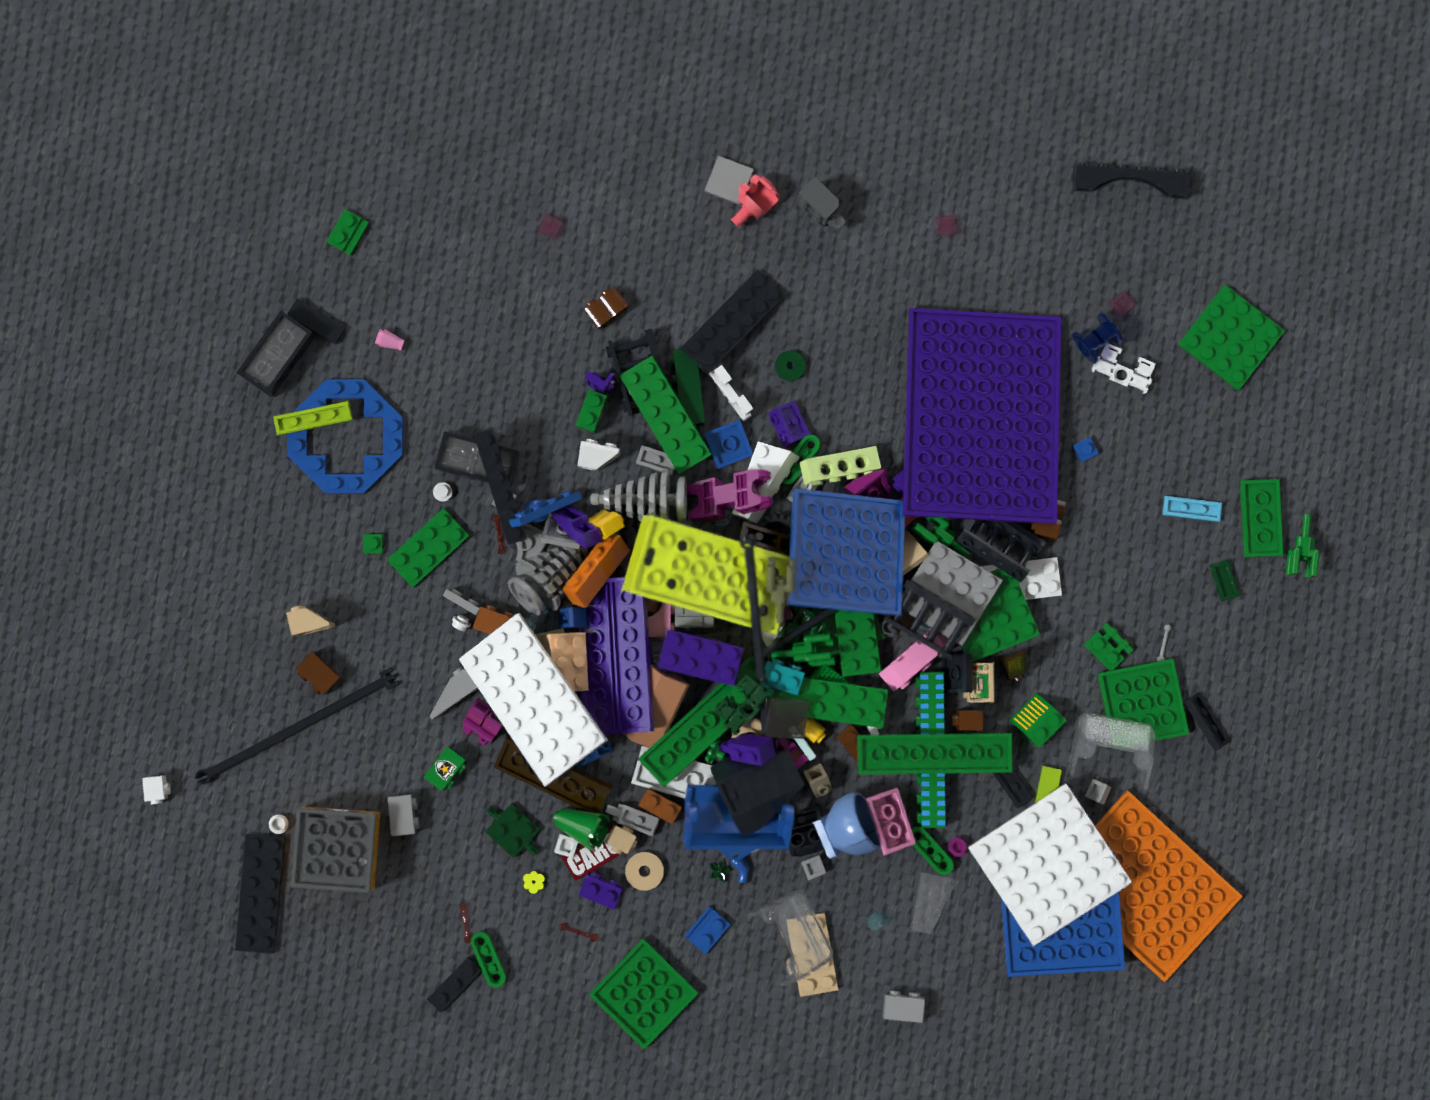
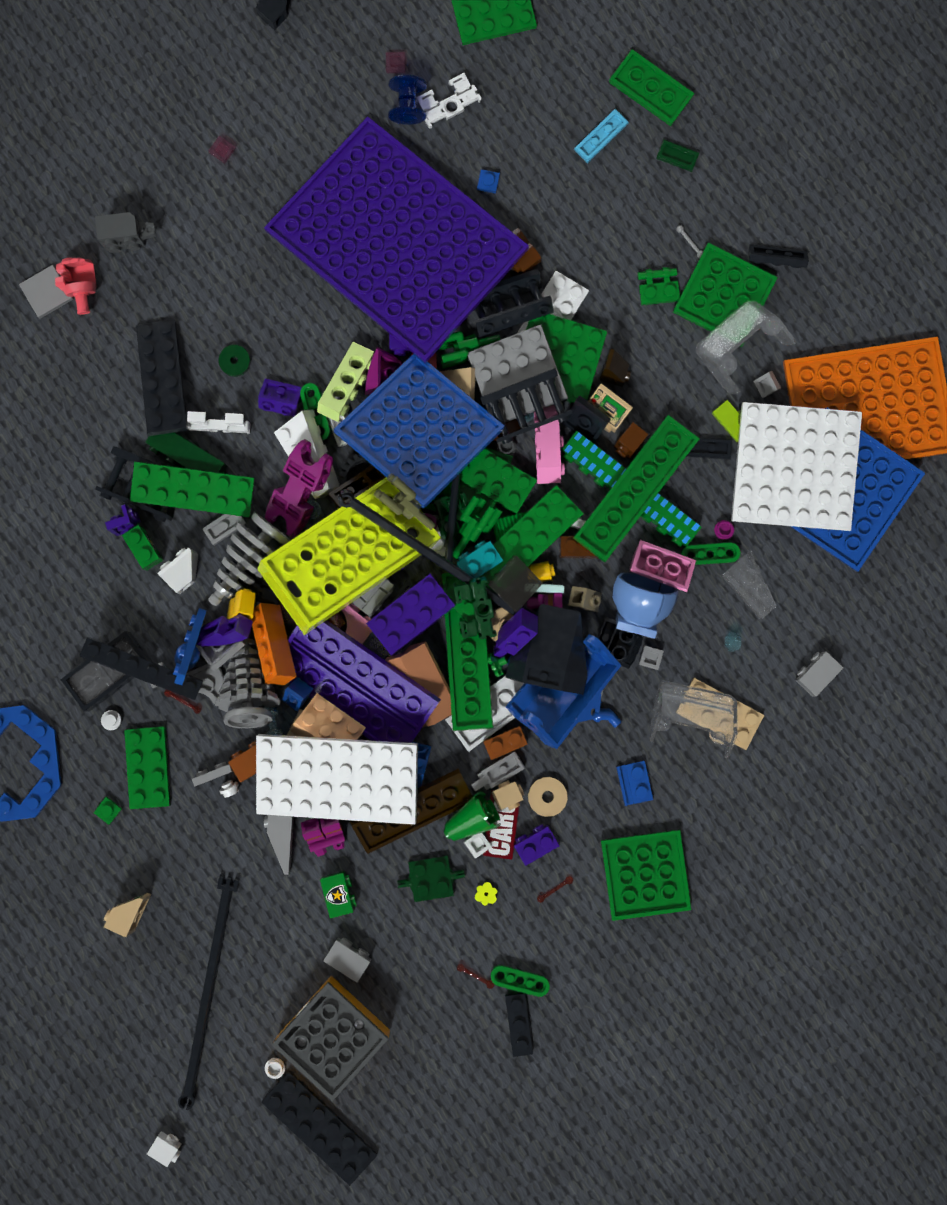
camera: 55 degrees left, 0 degrees up
(318, 673) = (177, 938): reddish brown brick -> none
(606, 308) = (68, 470): reddish brown brick -> none
(719, 871) = (594, 735): dark green plant -> none
(728, 444) = (257, 458): blue plate -> none
(1037, 720) = (673, 387): green slope -> none
(1303, 551) = (704, 74): green plant -> none

